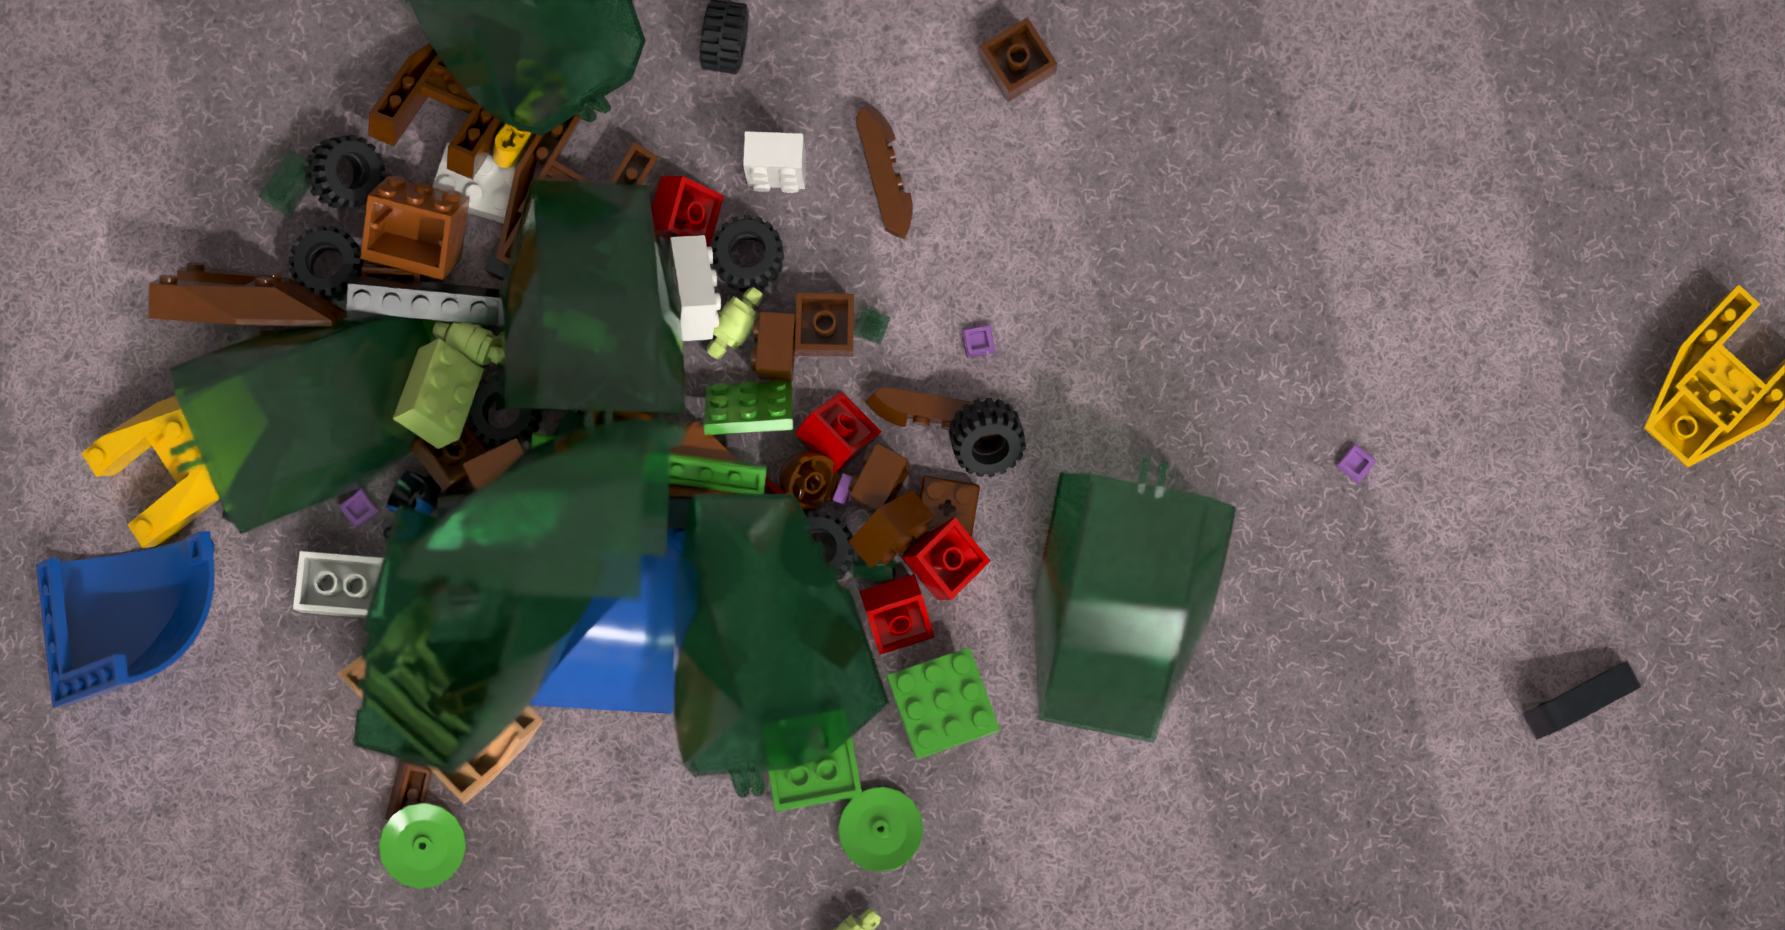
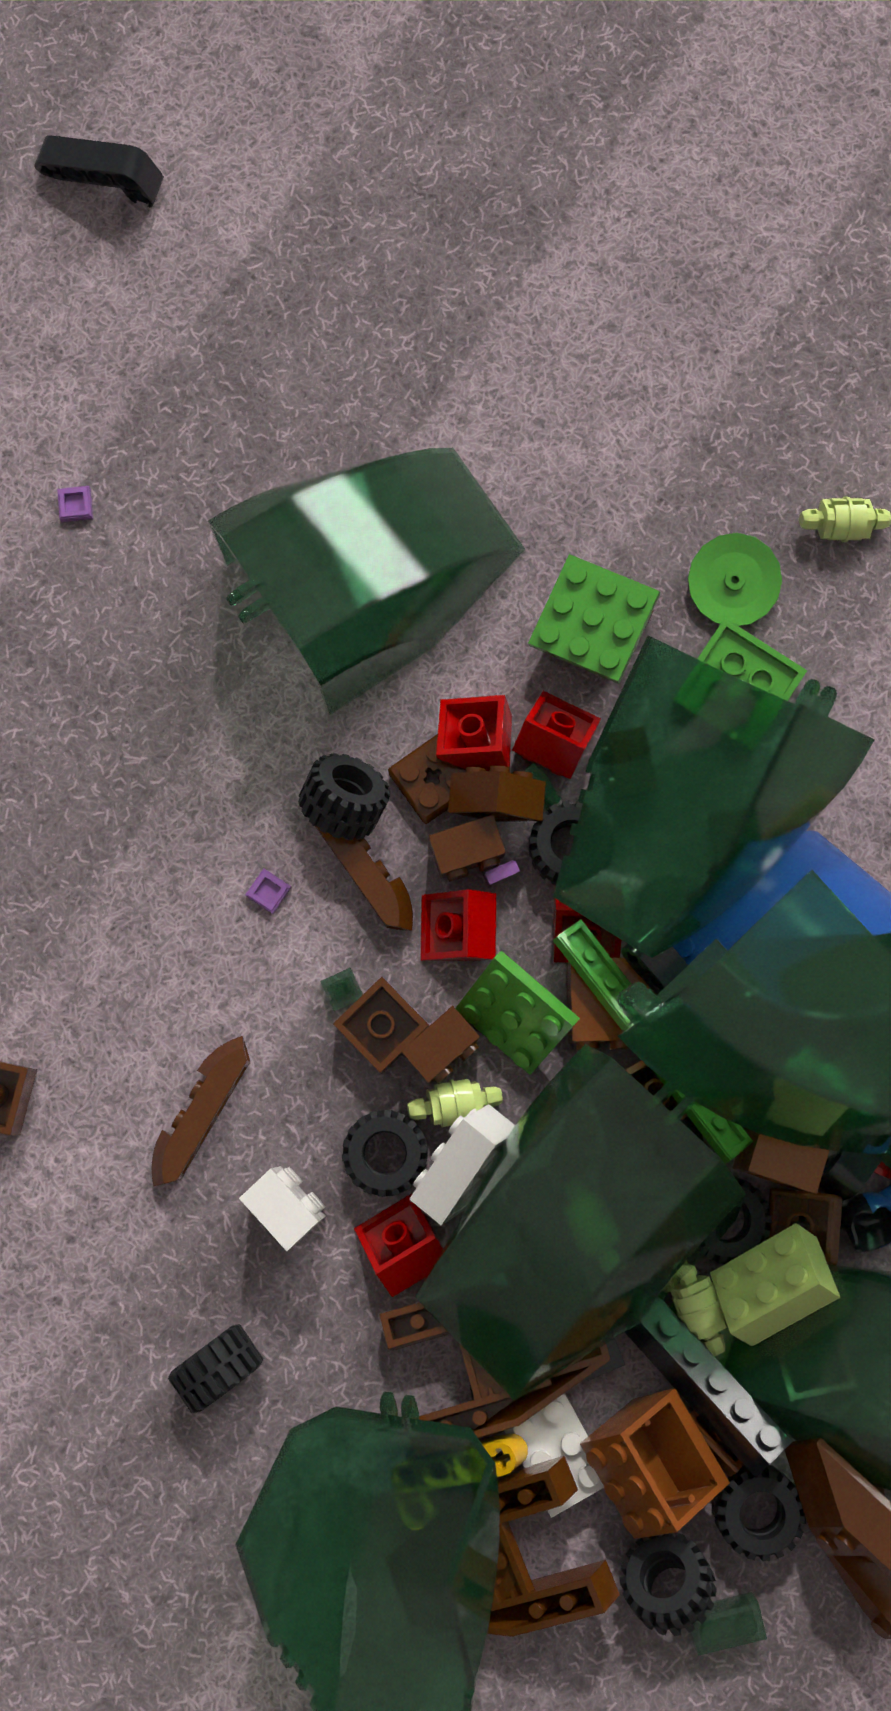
camera: 135 degrees left, 0 degrees up
(809, 478) = (523, 909): reddish brown cylinder -> none

